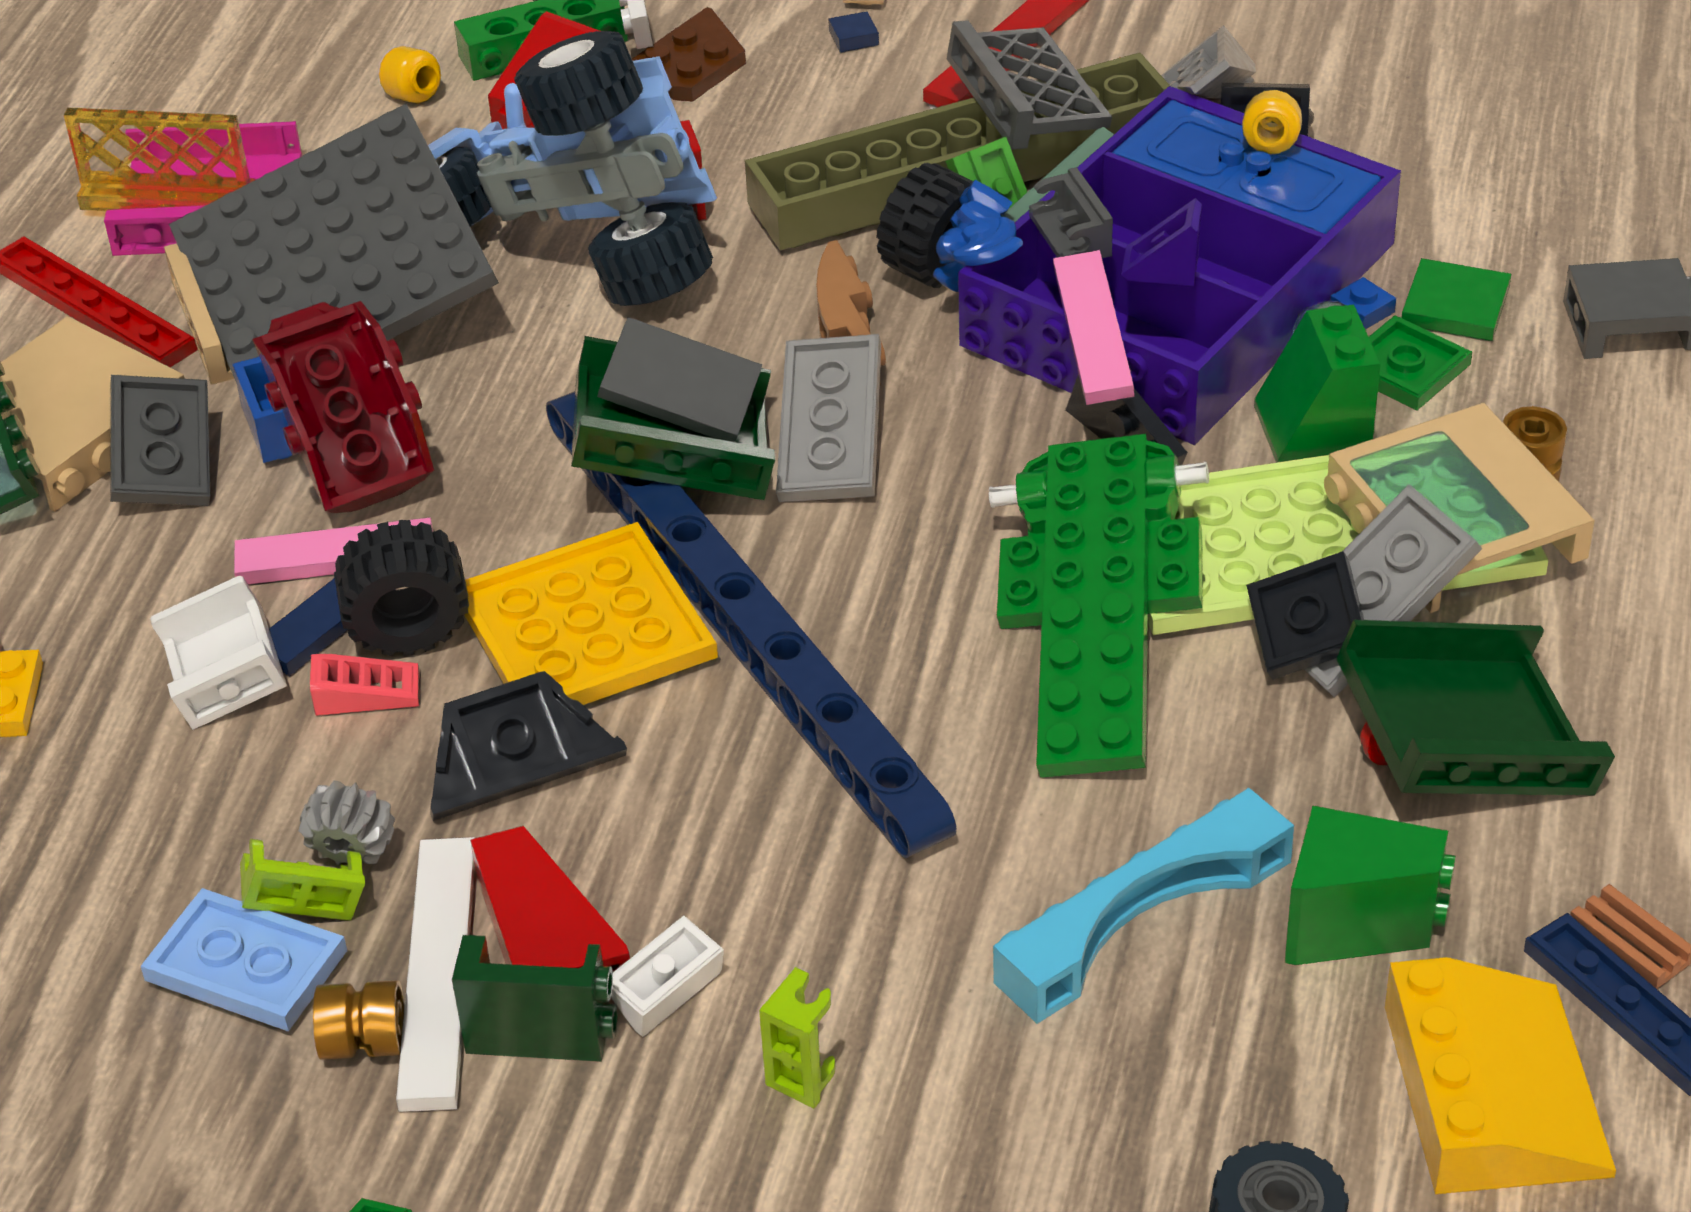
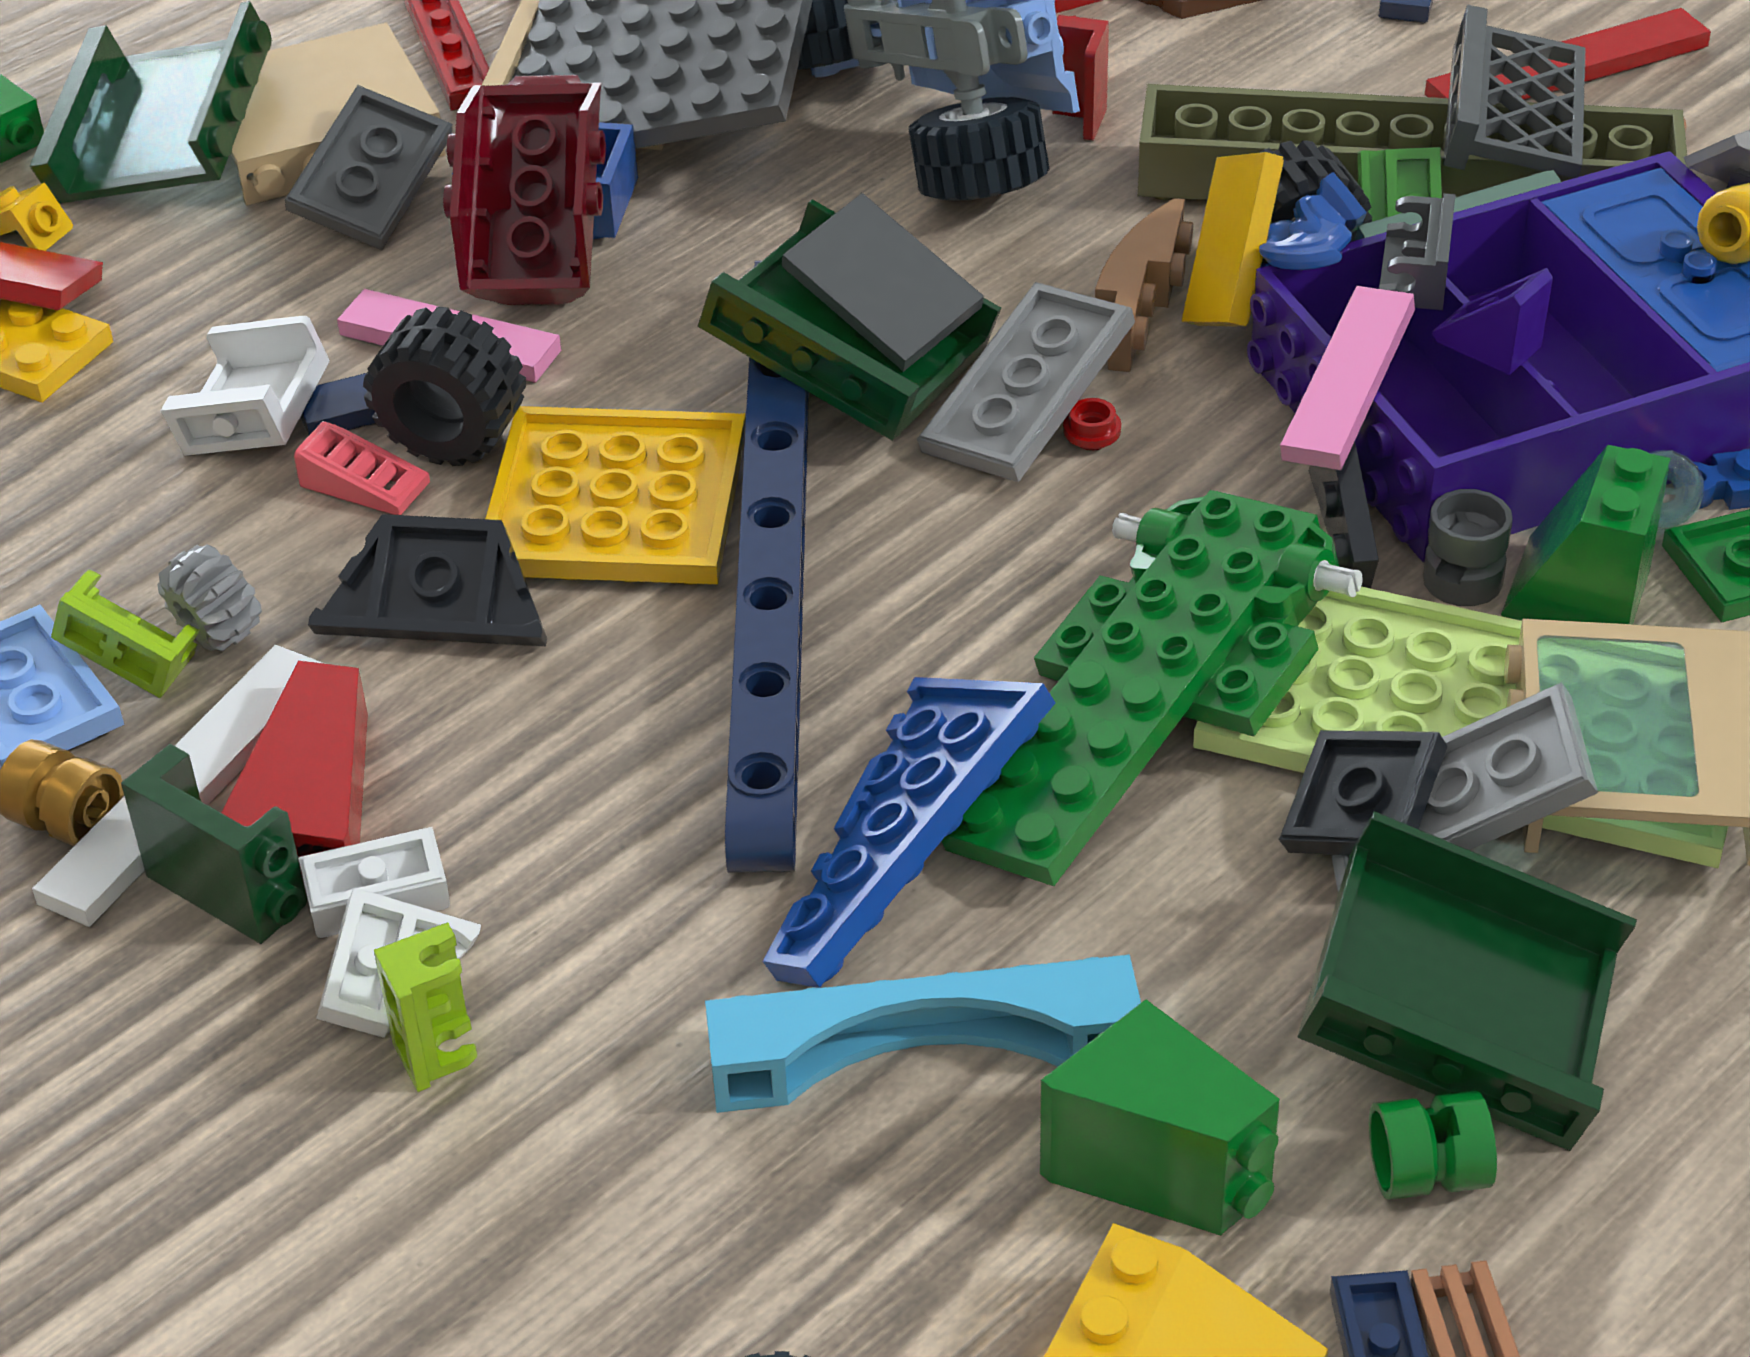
camera: 30 degrees right, 0 degrees up
(722, 1026) = (370, 922): none -> white wing
(896, 433) = (1092, 424): none -> red plate
(916, 257) = (1230, 238): none -> yellow tile
(1004, 753) = (901, 811): none -> blue wing
(1232, 421) = (1467, 547): none -> dark grey wheel
(1526, 826) = (1432, 1145): none -> green wheel

